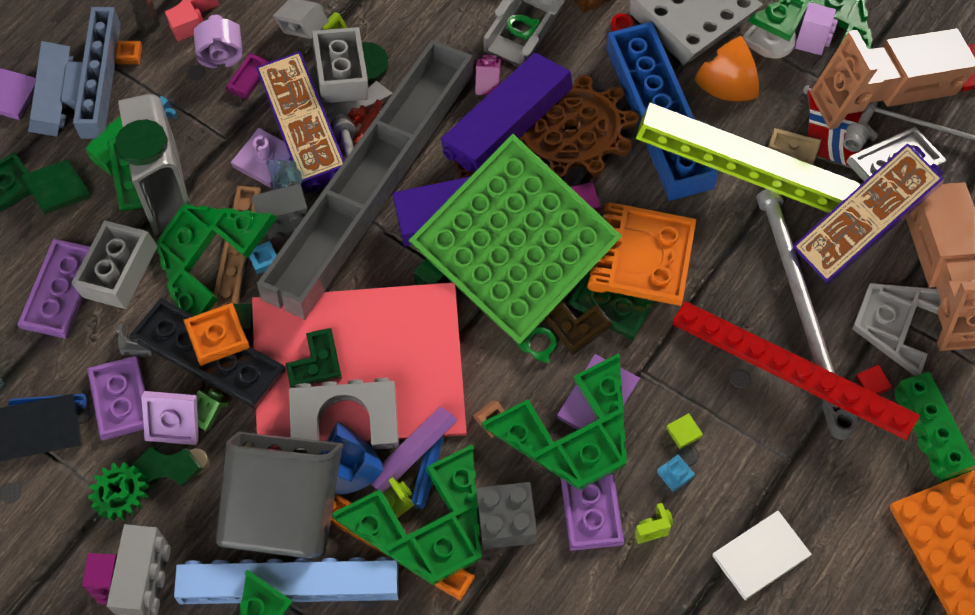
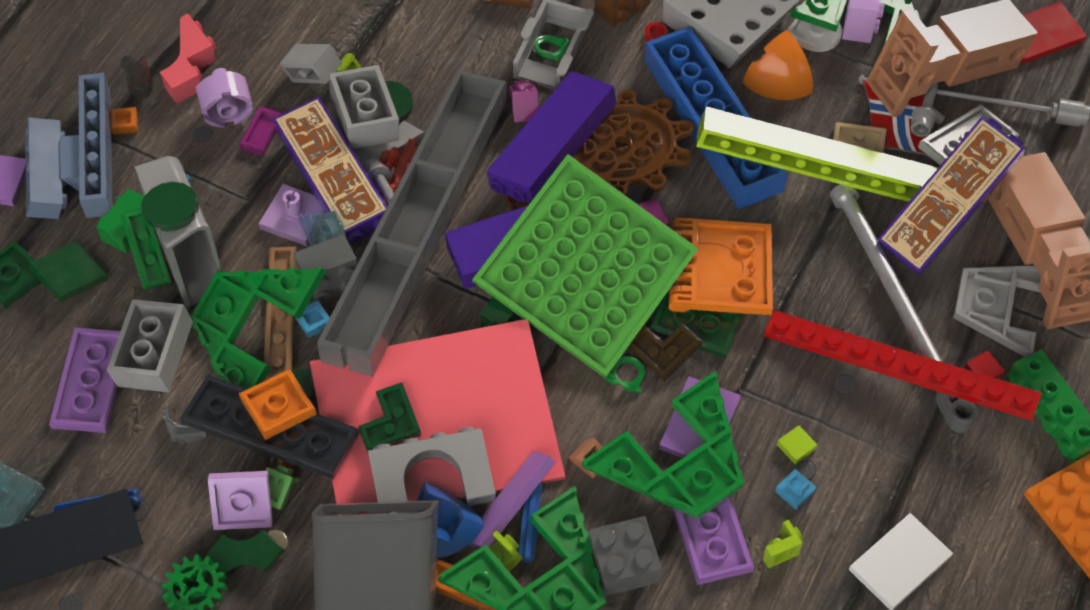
camera: 10 degrees left, 5 degrees down
(117, 396) = (176, 487): medium lavender tile -> none

